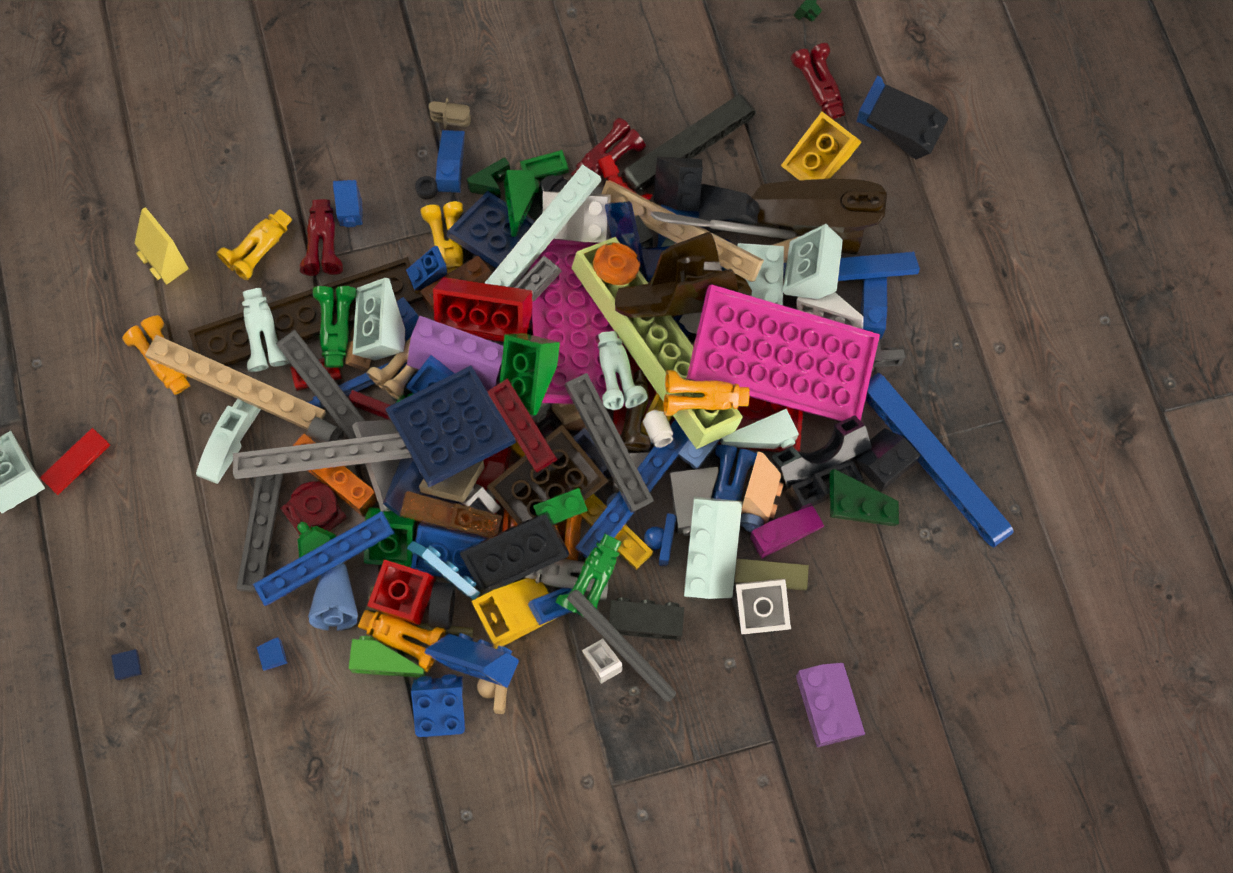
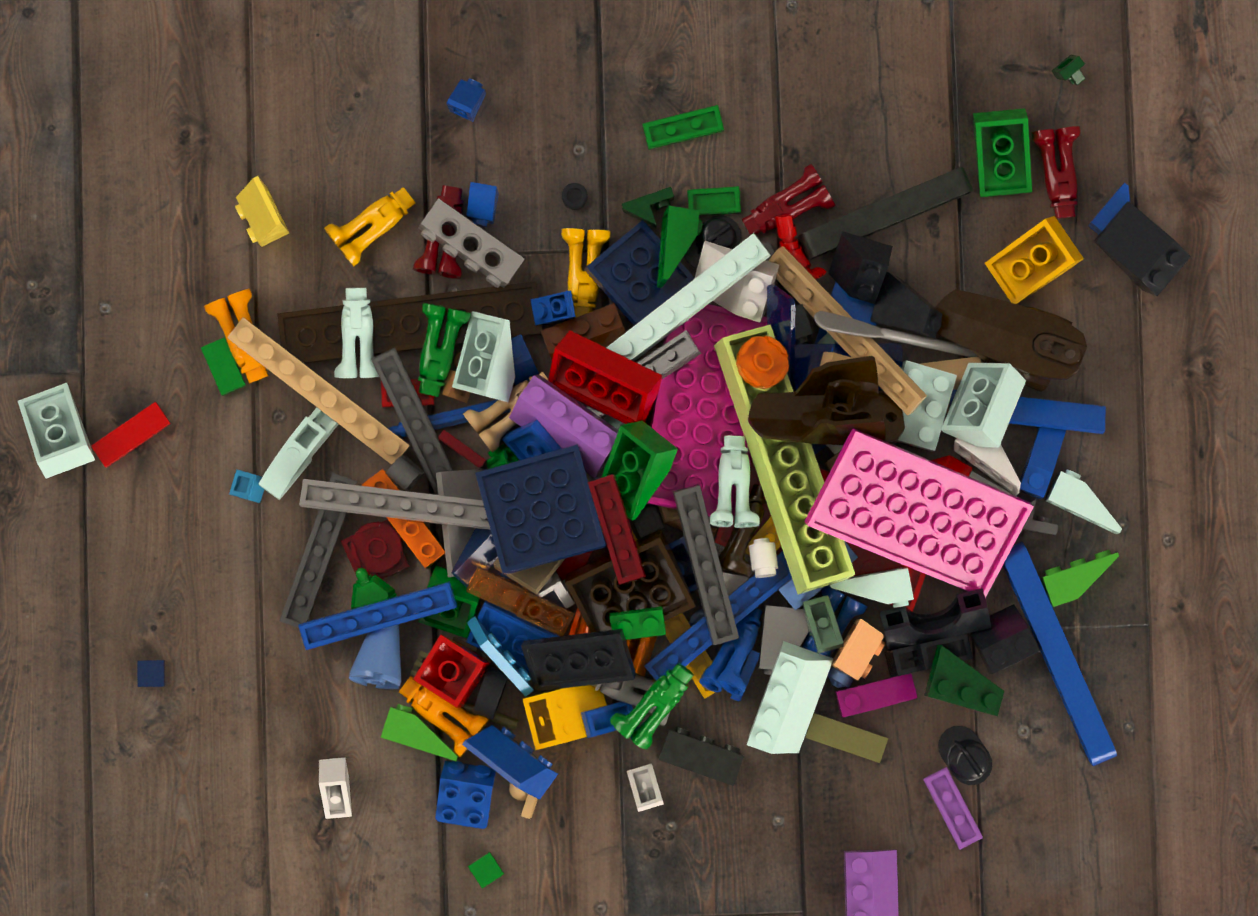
camera: 20 degrees right, 15 degrees up
(149, 386) = (223, 366): none -> green tile
(187, 482) = (247, 486): none -> dark azure slope
(272, 654) = (303, 698): blue slope -> none
(316, 727) = (335, 788): none -> white slope
(318, 131) = (466, 99): none -> blue slope
(339, 224) = (486, 244): none -> light grey brick
(450, 113) = (622, 112): dark tan arm -> none
(450, 161) = (609, 168): blue slope -> none
(472, 771) = (486, 870): none -> green tile
(505, 117) = (683, 127): none -> green tile
(621, 645) = (668, 782): dark grey axle -> none
(650, 526) = (727, 676): none -> blue piece
(717, 394) = (831, 547): light orange piece -> none
(724, 472) = (822, 624): none -> sand green slope
(763, 606) = (826, 774): white brick -> none
(772, 78) = (1002, 152): none -> green slope
(880, 565) = (965, 755): none -> black piece
(882, 614) = (952, 808): none -> medium lavender tile
(915, 329) = (1077, 498): none -> light aqua slope
(928, 396) = (1073, 582): none -> bright green slope

